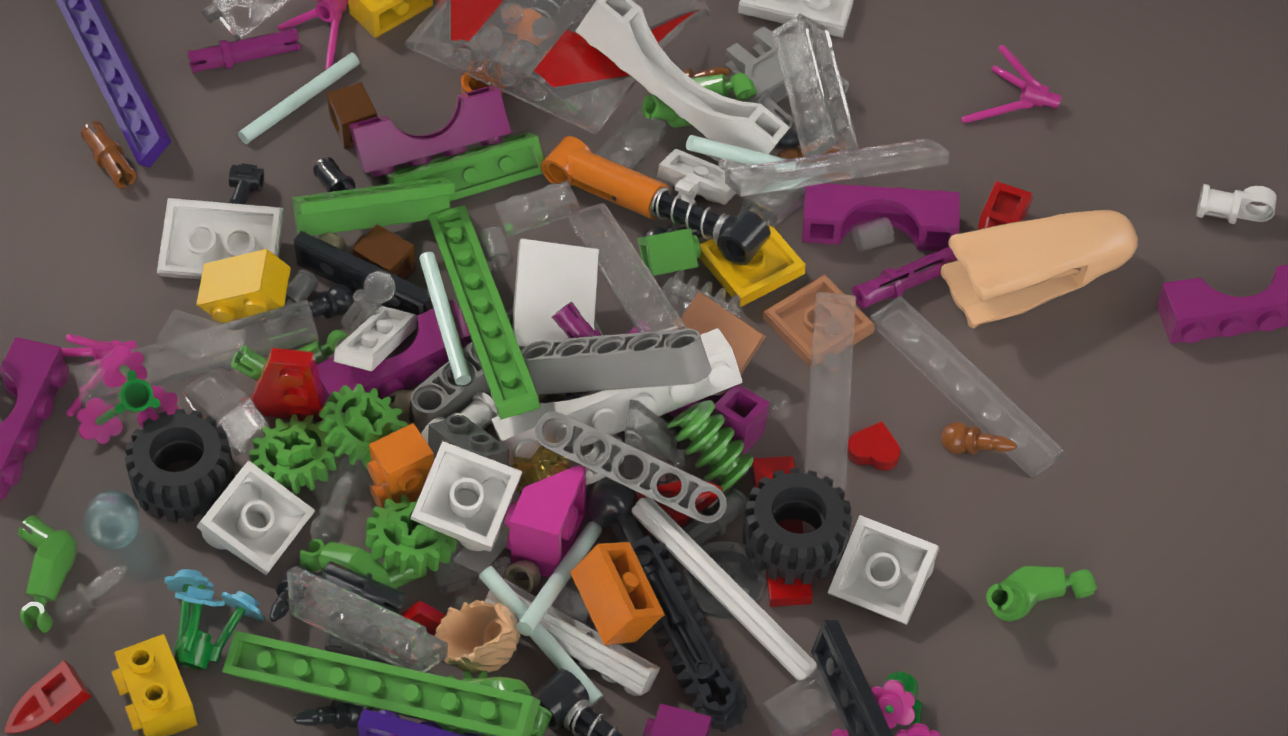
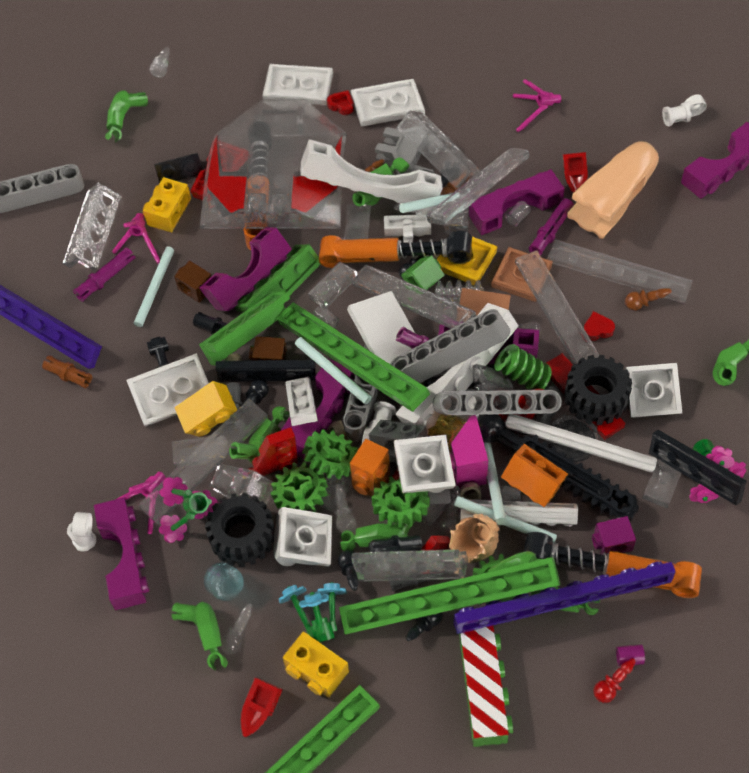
camera: 25 degrees left, 5 degrees up
(377, 289) = (284, 372): clear axle -> none

